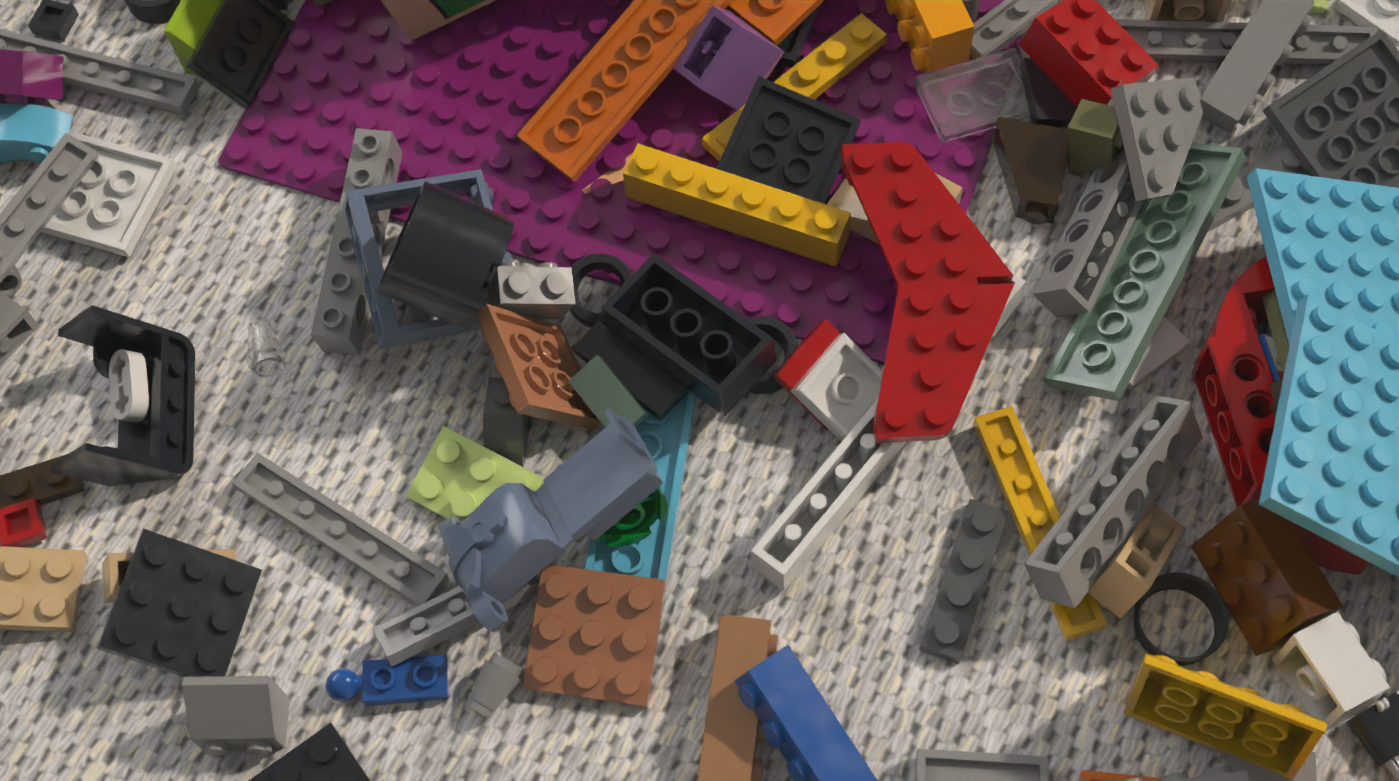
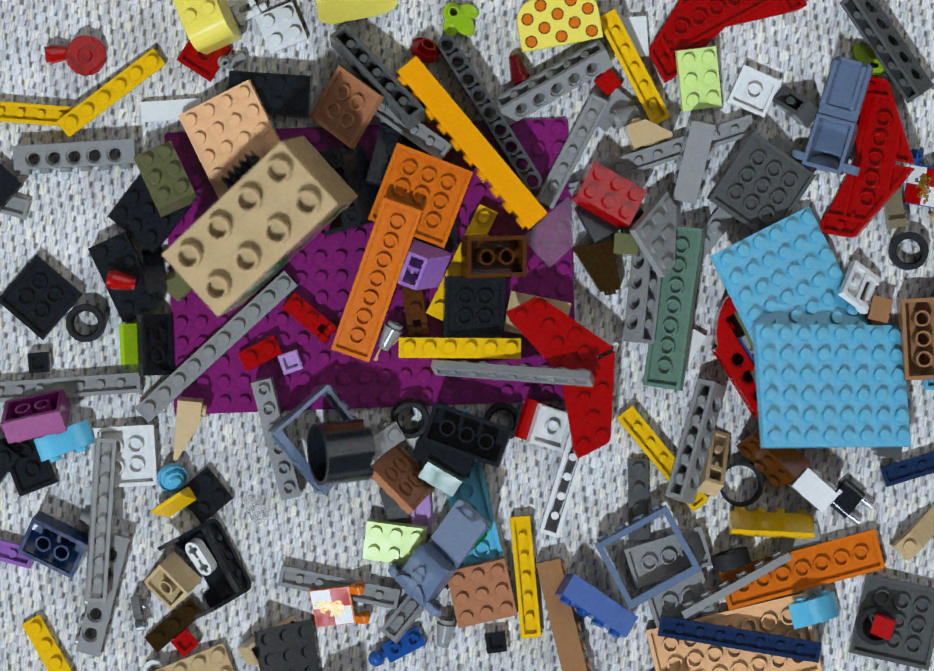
camera: 20 degrees left, 25 degrees up
(60, 409) = (172, 580): none -> tan slope
(133, 283) = (175, 503): none -> yellow slope
(155, 247) = (172, 477): none -> medium azure plate
(195, 298) = (209, 495): none -> black plate
(225, 171) = (188, 417): none -> tan slope
(314, 557) = (335, 605): none -> flag
(333, 82) = (216, 346): none -> light grey plate
(401, 112) = (260, 353): none -> red plate
(442, 142) = (290, 362): none -> lavender tile
(504, 86) = (309, 317): none -> red plate
(551, 448) = (422, 514): none -> lavender tile
(582, 742) = (495, 642): none -> black plate
(621, 150) = (390, 333): none -> light grey cone
(688, 122) = (415, 310): none -> reddish brown plate
(690, 643) = (525, 576): none -> yellow plate
(819, 255) = (507, 372): none -> light grey plate
(856, 74) = (493, 255): none -> reddish brown brick
(956, 746) = (663, 585): none -> sand blue window
(988, 706) = (665, 556): none -> light grey plate
(1117, 749) = (730, 559): none -> black tyre

